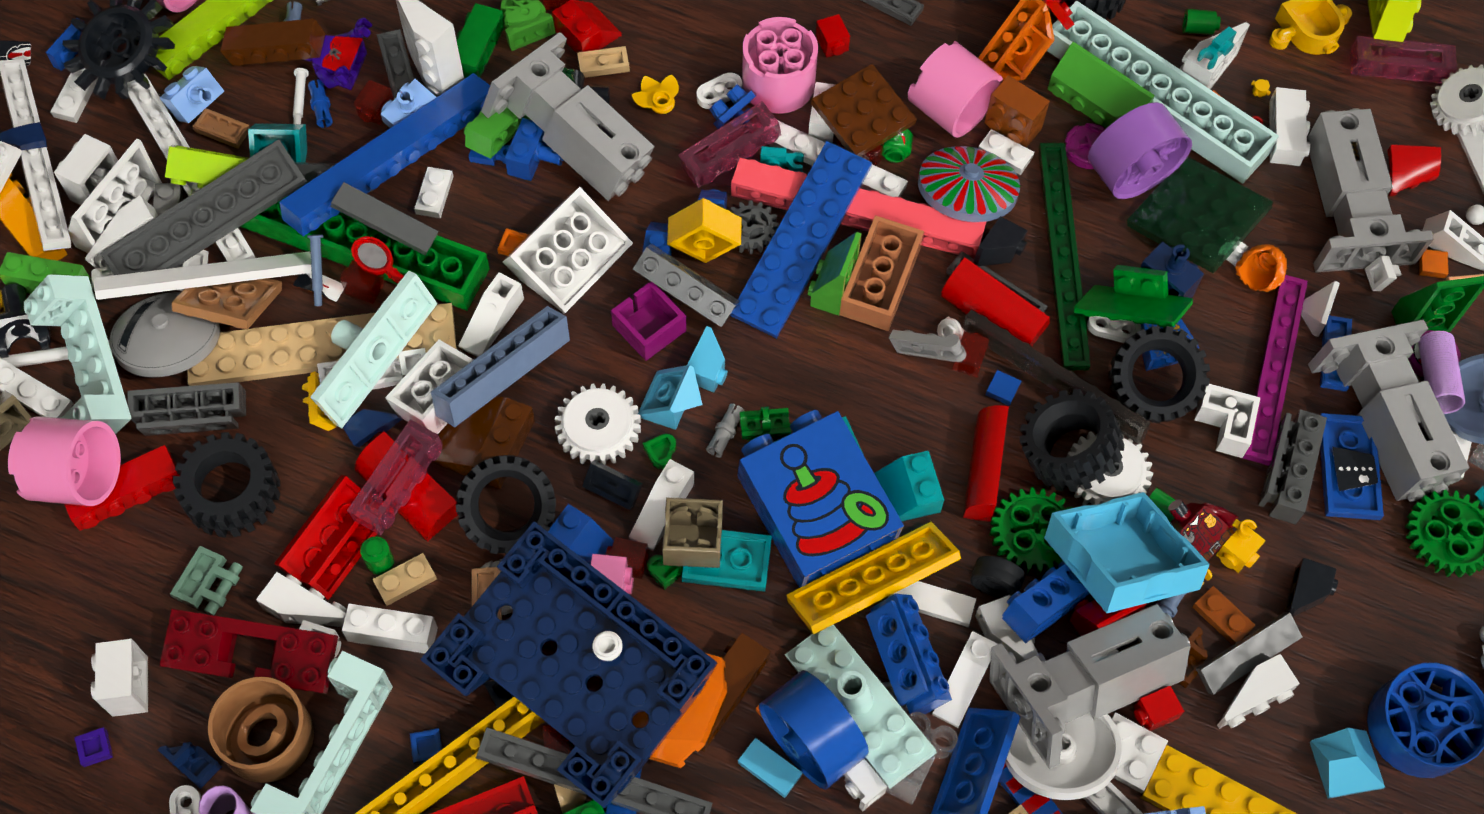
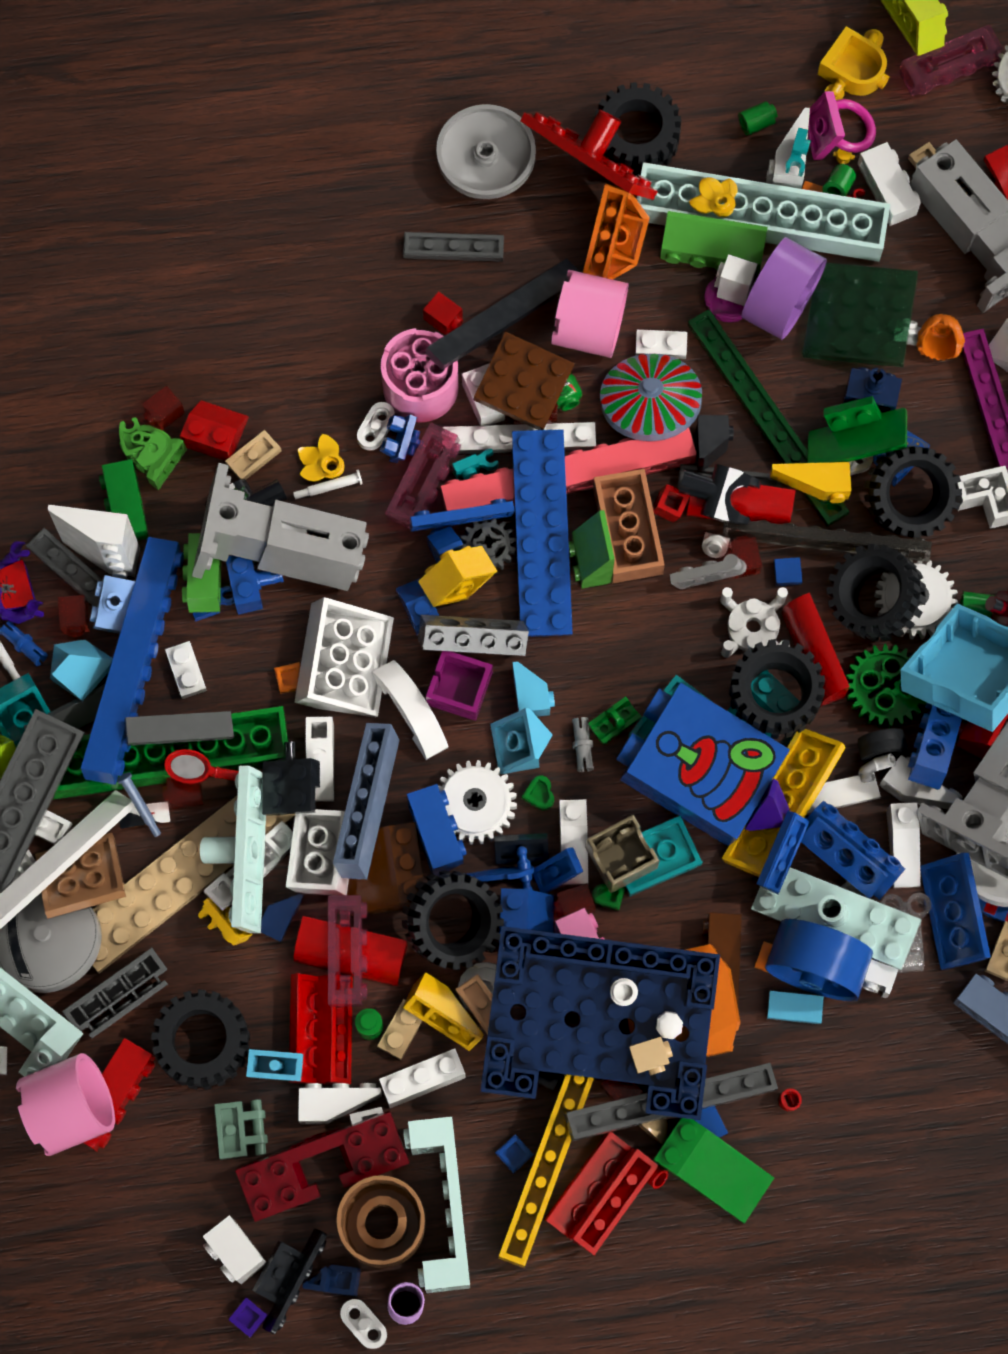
camera: 30 degrees left, 10 degrees up
(149, 726) = (284, 1276): none -> black bracket
(268, 538) = (274, 1065): none -> medium azure slope
(344, 137) = (79, 667): none -> medium azure slope
(446, 577) = (440, 1009): none -> yellow slope
(447, 316) = (290, 784): none -> black plate
(544, 420) = (436, 829): none -> blue slope
(594, 718) = (651, 1056): none -> tan brick
(597, 321) = (412, 707): none -> white slope
(600, 504) = (522, 871): none -> blue piece
(629, 519) = (557, 870): none -> blue plate
(631, 701) = (669, 1025): none -> white tile
(651, 116) = (329, 485): none -> white piece
(707, 174) = (497, 509): none -> blue plate
(842, 615) = (783, 852): none -> blue tile
(855, 571) = (770, 809): none -> dark purple slope
(860, 49) = (499, 316): none -> black tile
(930, 273) = (670, 503): none -> red brick
(931, 438) = (781, 658): none -> black tyre
(947, 401) = (750, 610): none -> white plate
(970, 592) = (876, 764): none -> arm
(977, 281) = (717, 492): none -> black connector
(1016, 111) = (653, 304): dark orange brick -> none
(1076, 321) = (820, 480): none -> yellow slope
(1097, 118) = (735, 279): none -> white brick
(1123, 54) = (713, 195): none -> yellow plate
(1246, 100) = (840, 180): none -> green brick
(1257, 52) = (826, 128): none -> dark pink tile

